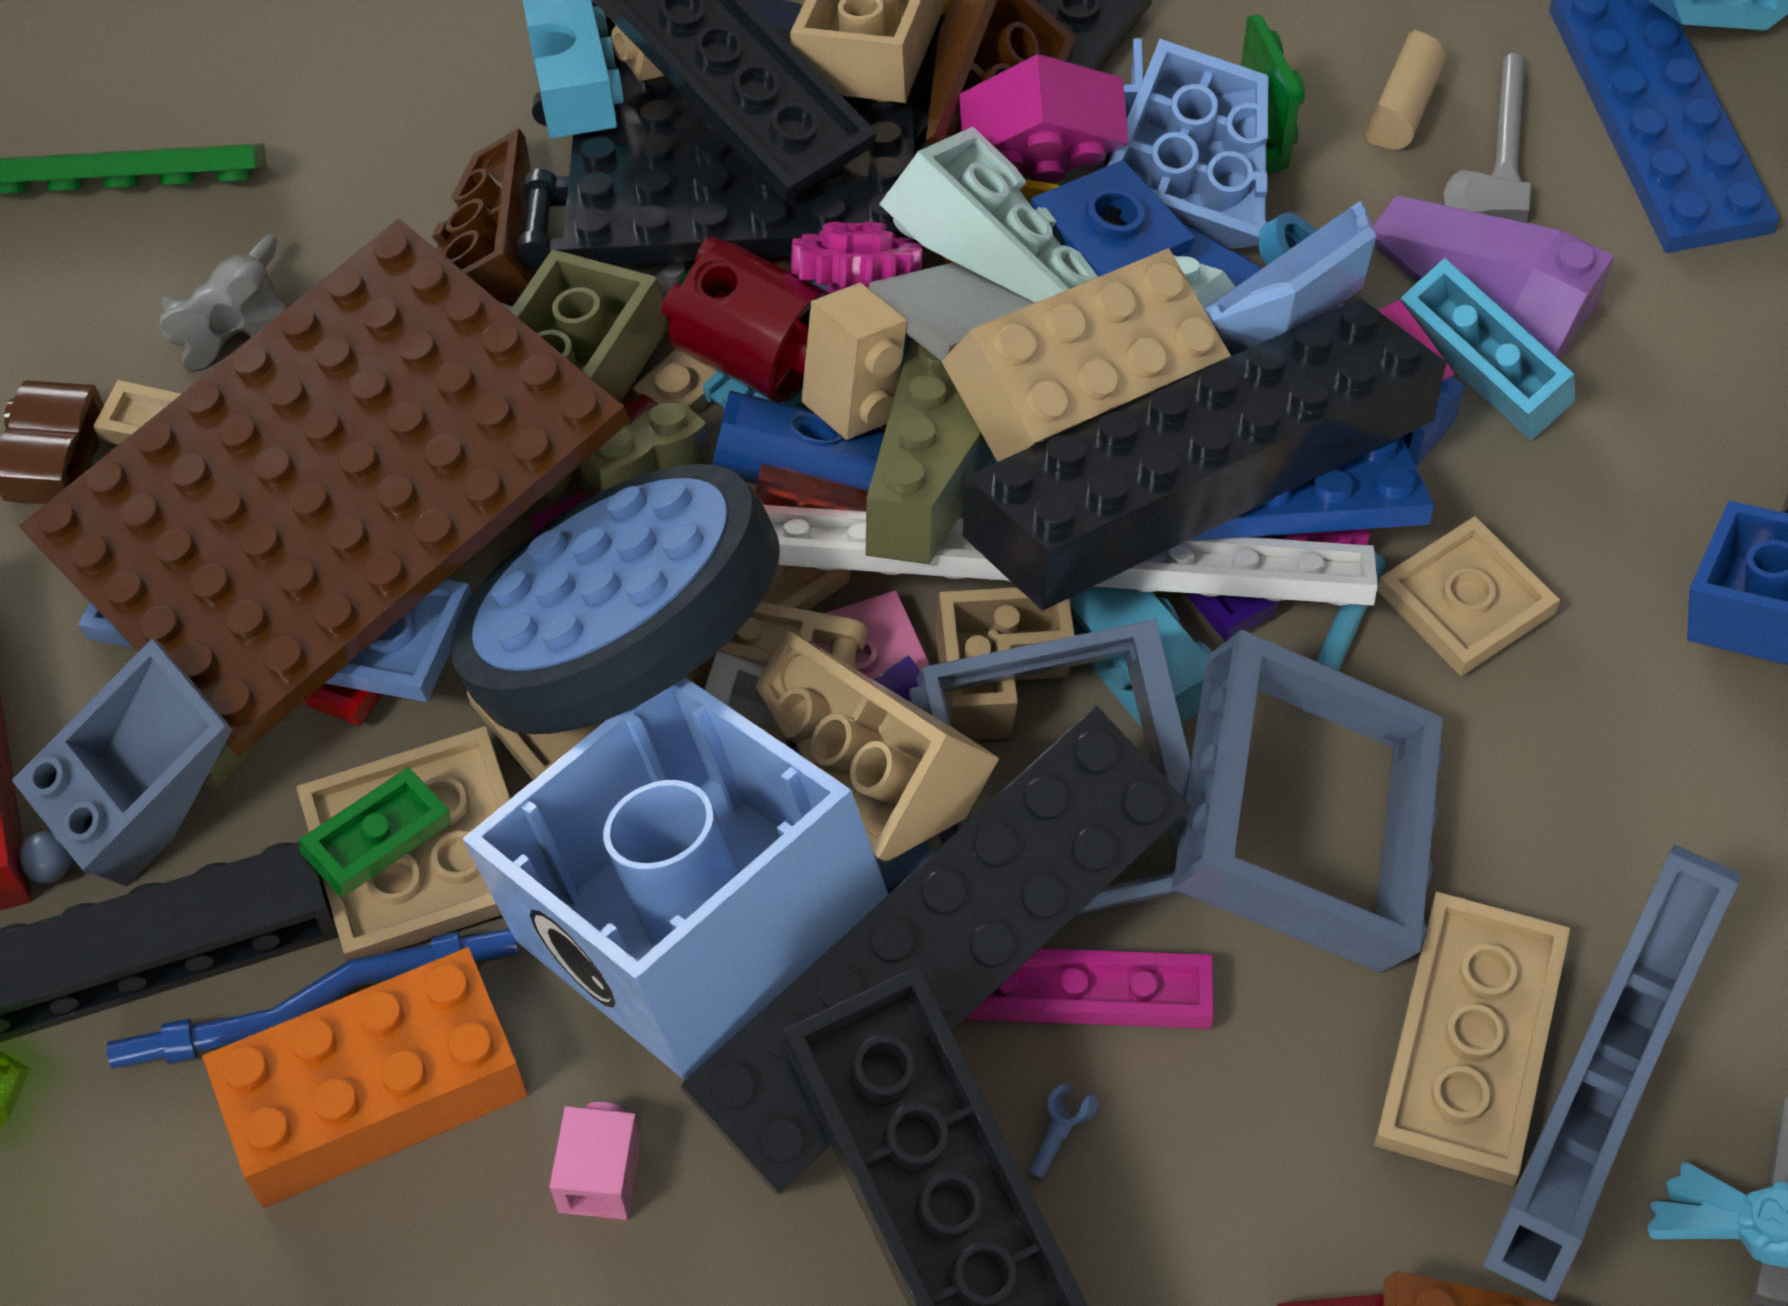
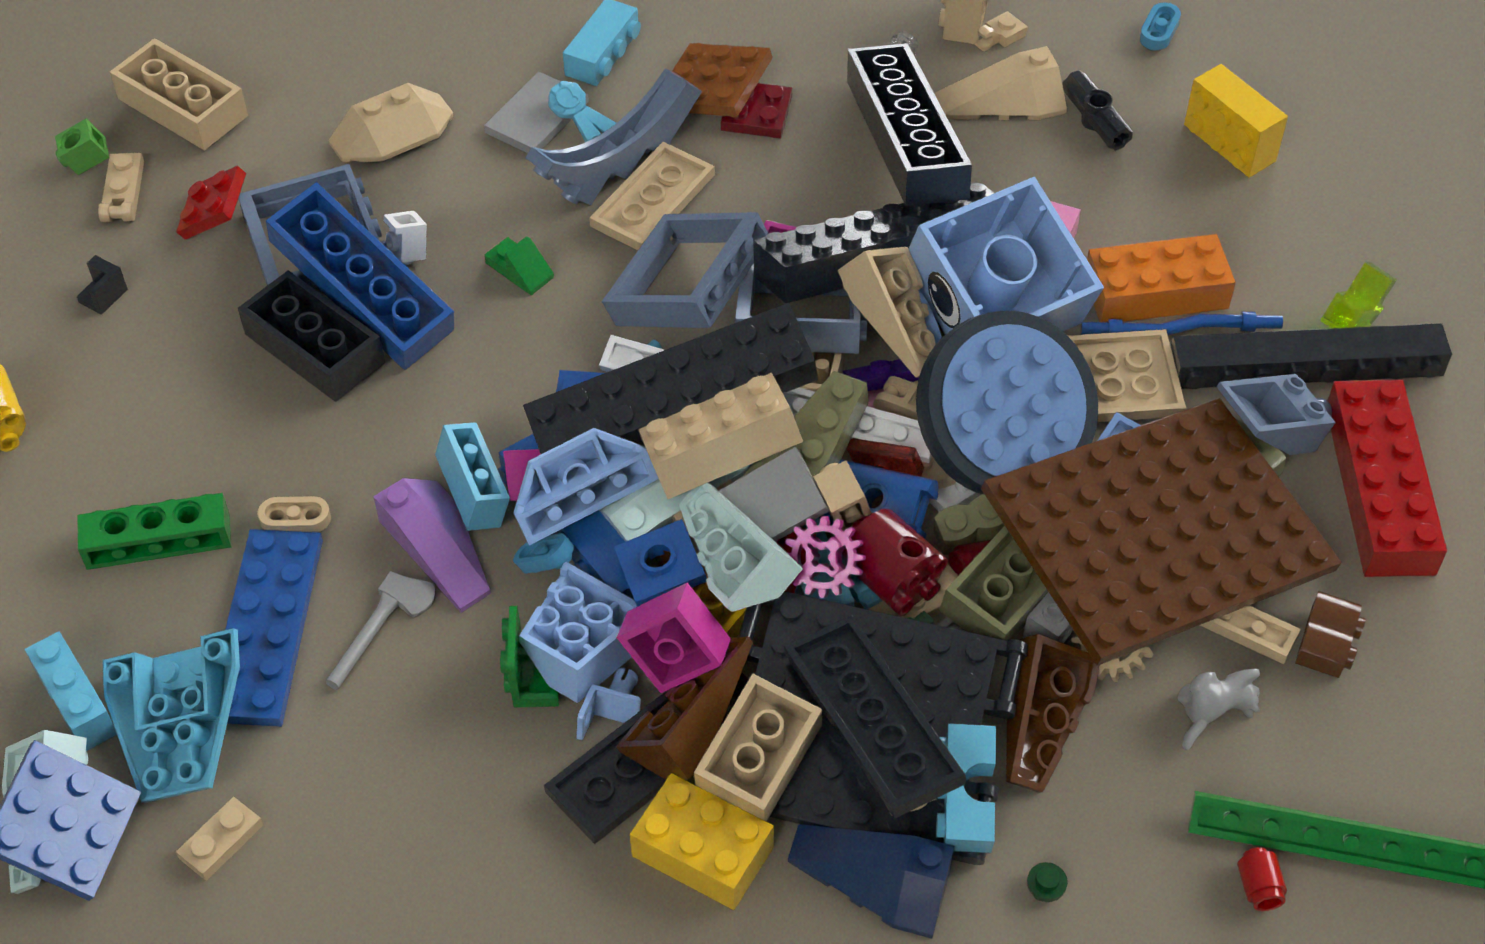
camera: 165 degrees left, 5 degrees down
(159, 98) = (1262, 879): none -> red brick
(374, 832) = (1146, 359): green plate -> none
(451, 46) = (1047, 882): none -> dark green plate
(1060, 1126) = (842, 207): medium blue hand -> none
(1407, 92) = (418, 669): tan brick -> none
(1468, 595) = (540, 363): tan plate -> none
(1641, 805) = (520, 264): none -> green slope
(1721, 254) = (295, 514): none -> tan plate

